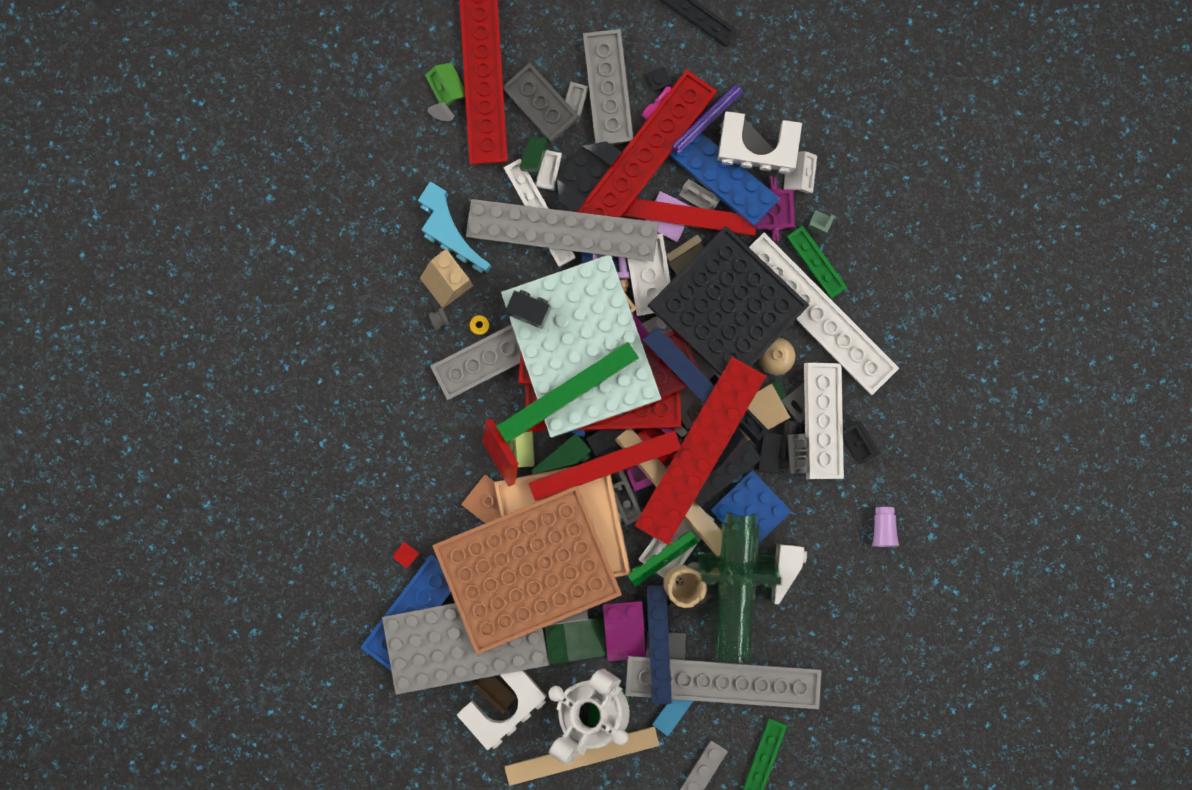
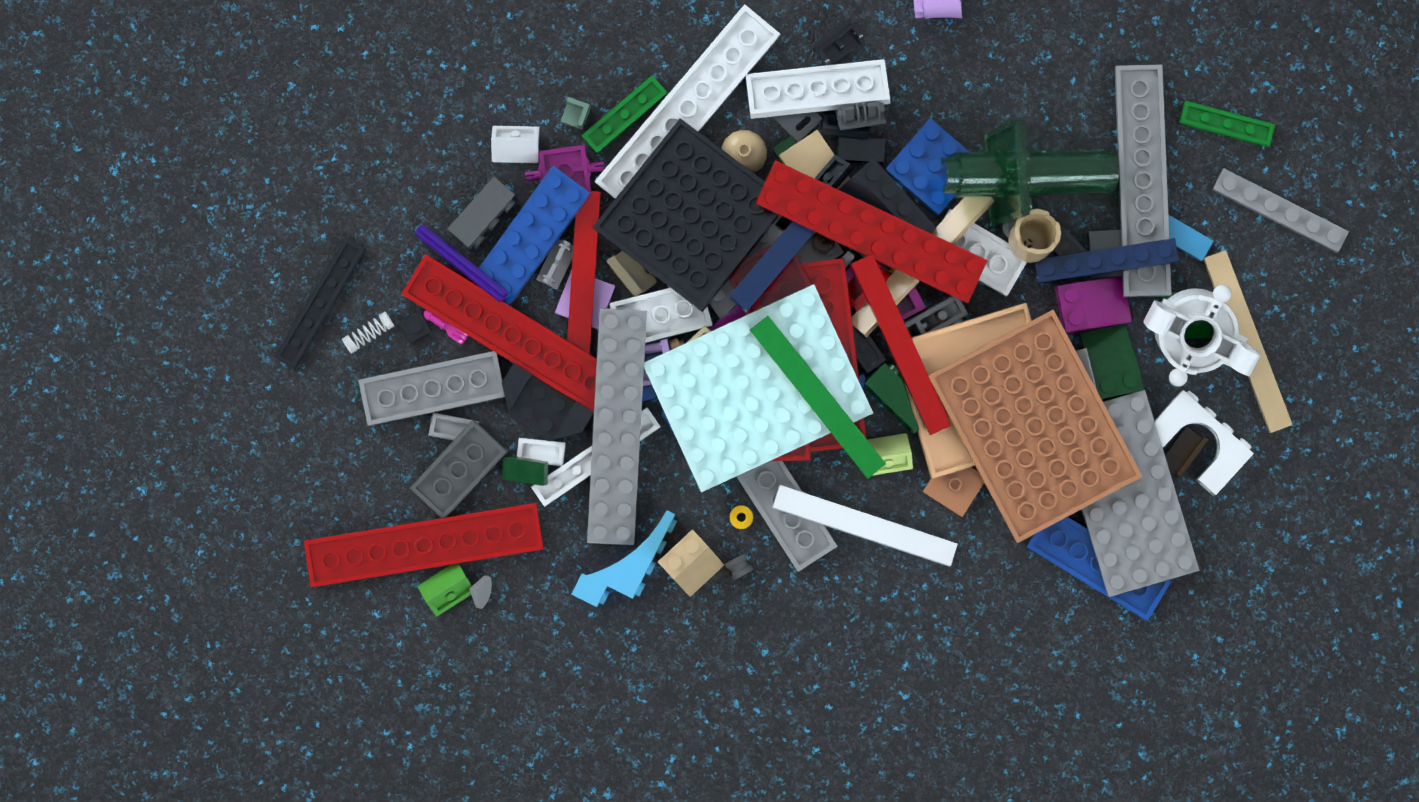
camera: 100 degrees left, 0 degrees up
(405, 555) = (1030, 578): red tile -> none
(461, 423) = (864, 525): none -> white tile
(500, 452) = (896, 473): red tile -> none
(528, 309) = (721, 454): black brick -> none
(648, 26) = (386, 321): none -> white piece
(668, 554) = (1009, 273): green plate -> none
(734, 151) = (500, 226): white arch -> none
(789, 561) = (992, 113): white slope -> none

